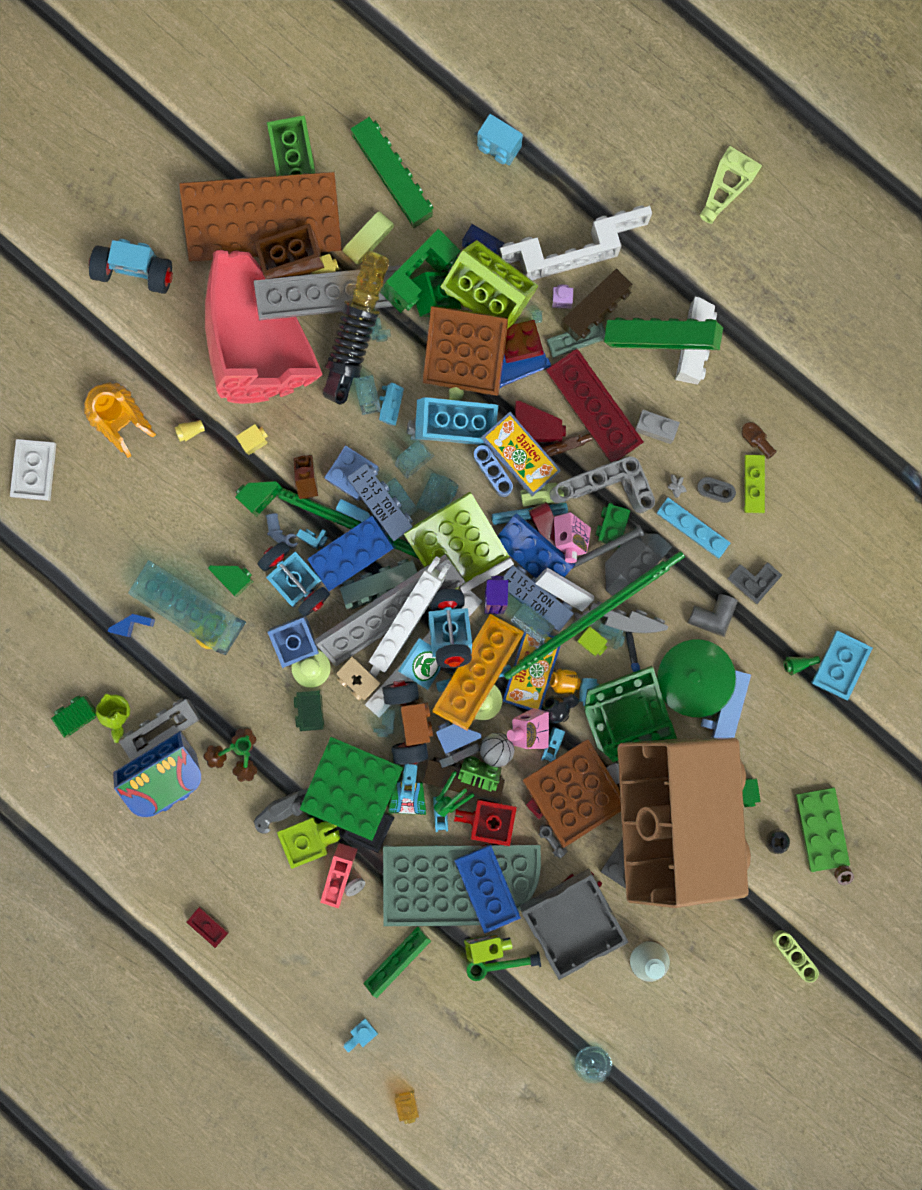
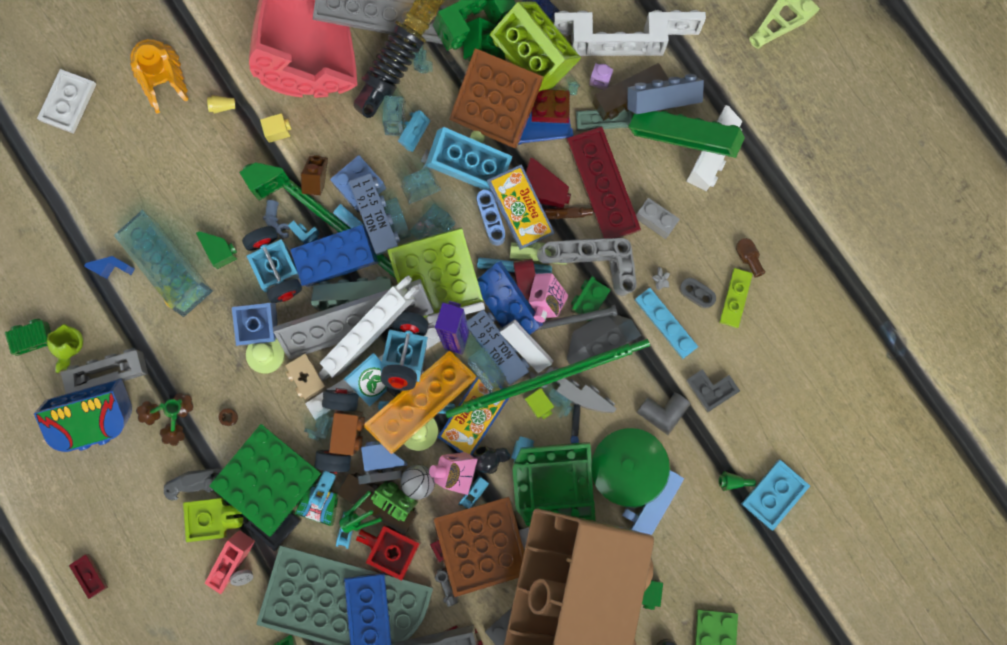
camera: 15 degrees right, 5 degrees down
(287, 739) = (229, 411): none -> reddish brown bush
(310, 711) = (250, 394): clear green brick -> none
(564, 681) = (502, 434): light orange head -> none
(632, 300) = (665, 94): none -> sand blue brick

